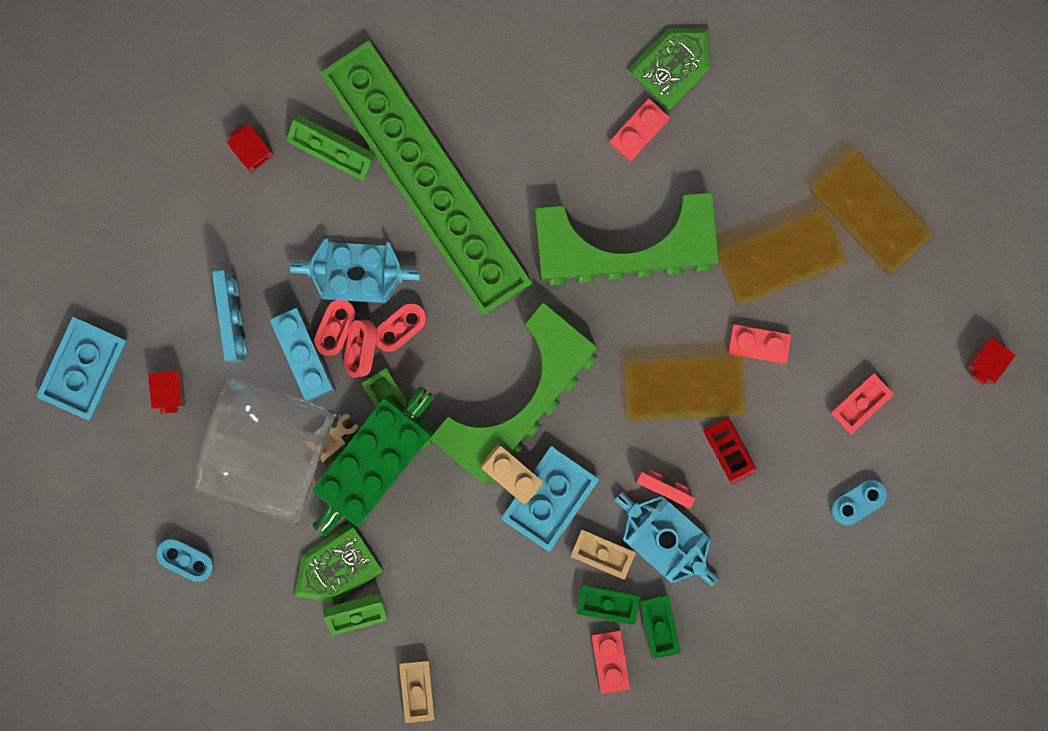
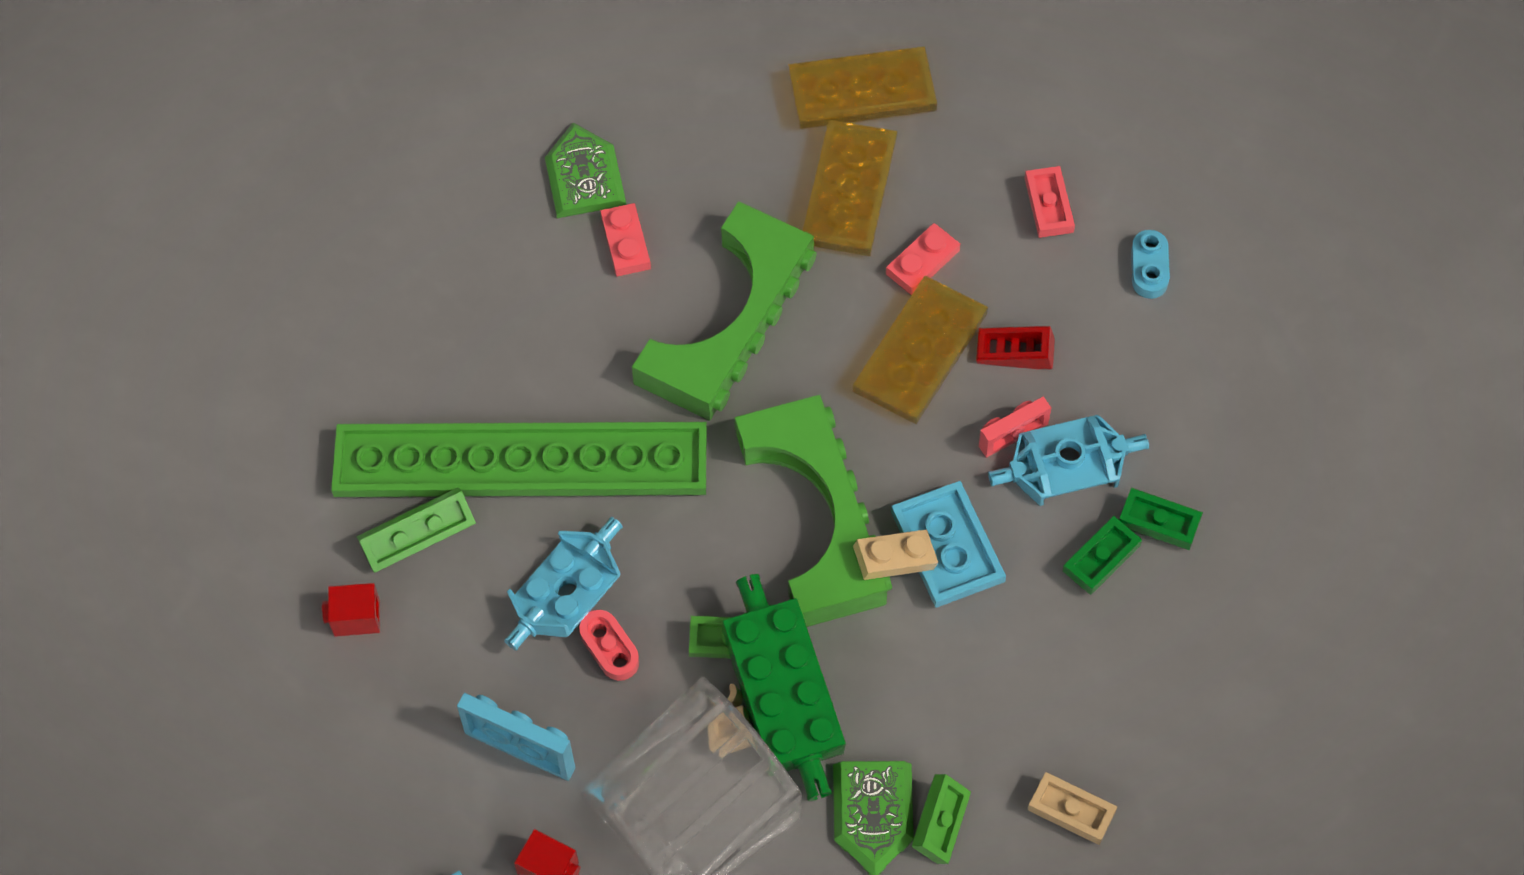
camera: 60 degrees left, 25 degrees down
(302, 355) = (612, 691): medium azure brick -> none
(360, 348) = (648, 631): coral plate -> none
(400, 328) = (657, 582): coral plate -> none
(602, 554) = (1043, 528): tan plate -> none
(610, 661) = (1167, 593): coral plate -> none
(989, 362) = (1084, 69): red brick -> none

